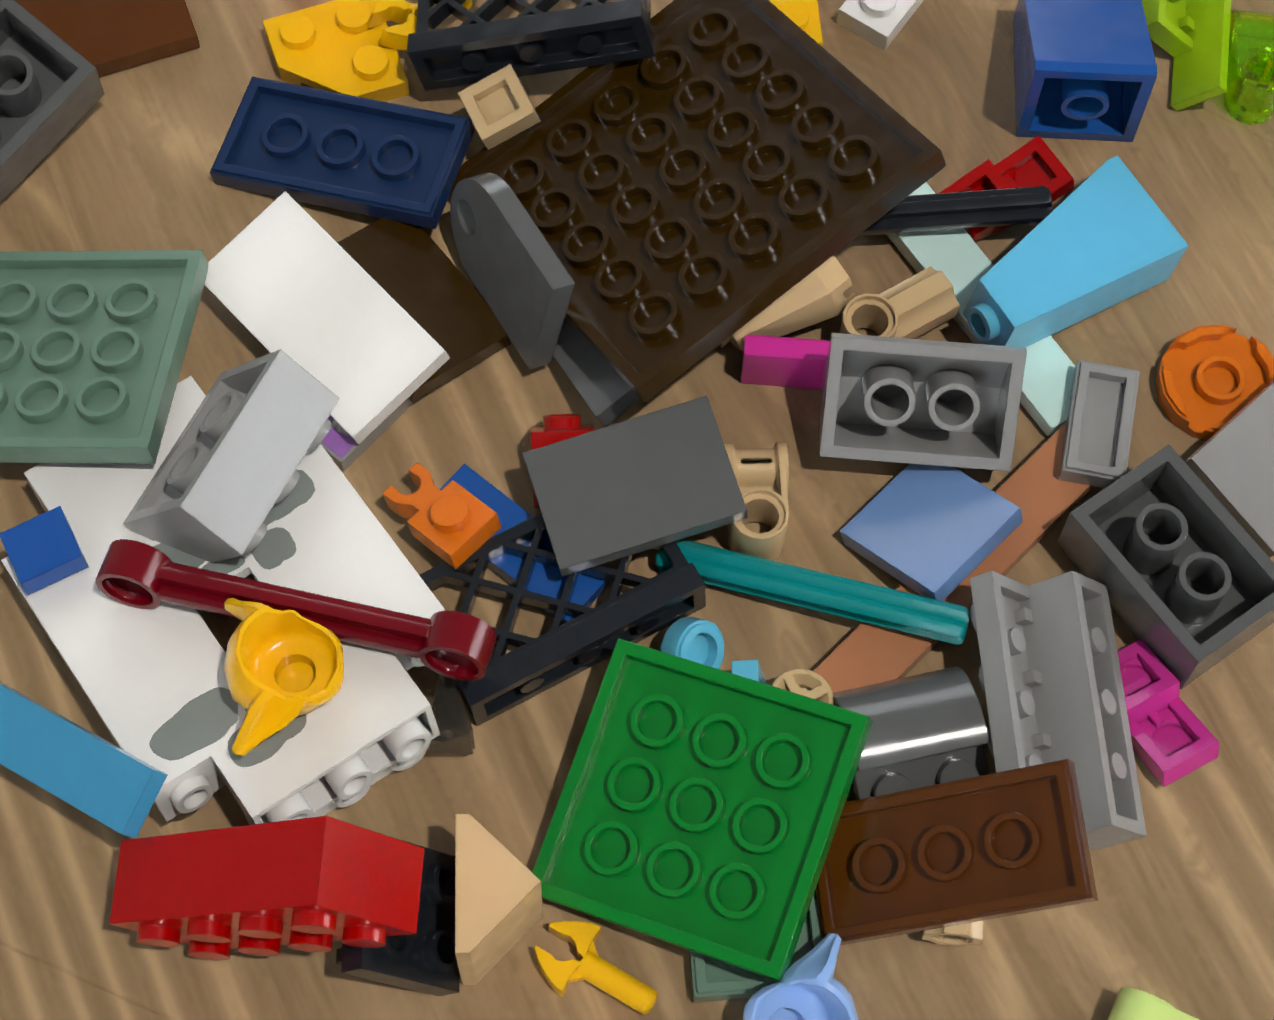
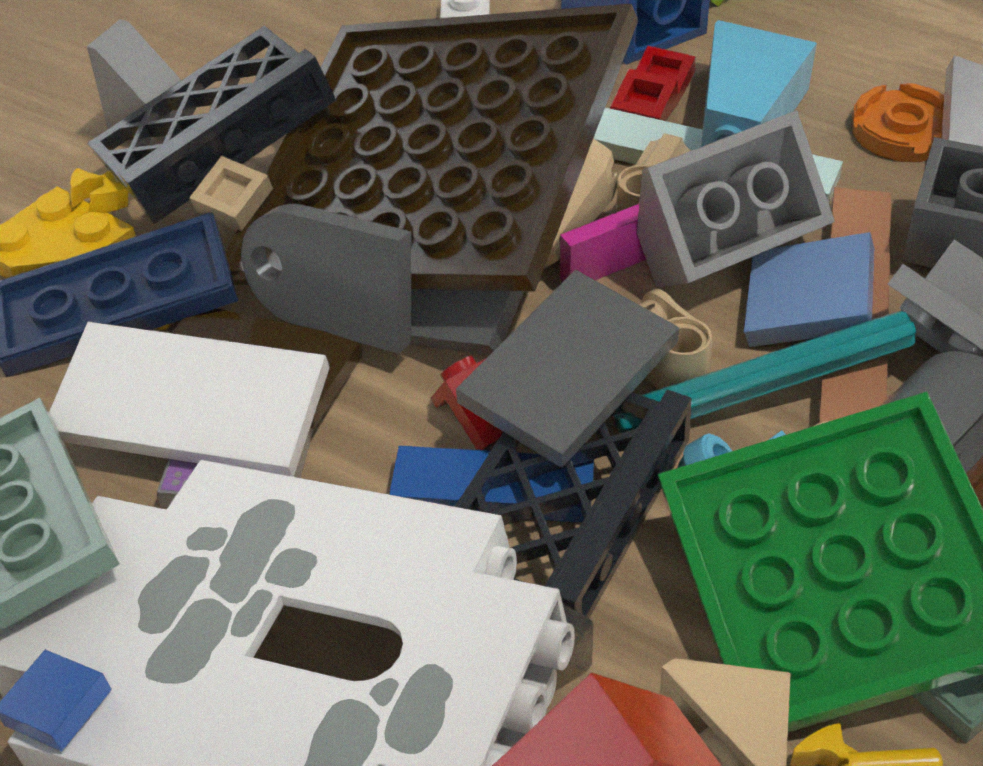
camera: 30 degrees left, 20 degrees down
(235, 459) = (200, 515): slope -> none
(278, 669) = (394, 629): yellow piece -> none
(444, 520) = (423, 475): orange plate -> none
(447, 643) = (355, 590): dark red piece -> none
(965, 210) = (651, 93): black axle -> none
(1099, 424) = (862, 172): light grey tile -> none

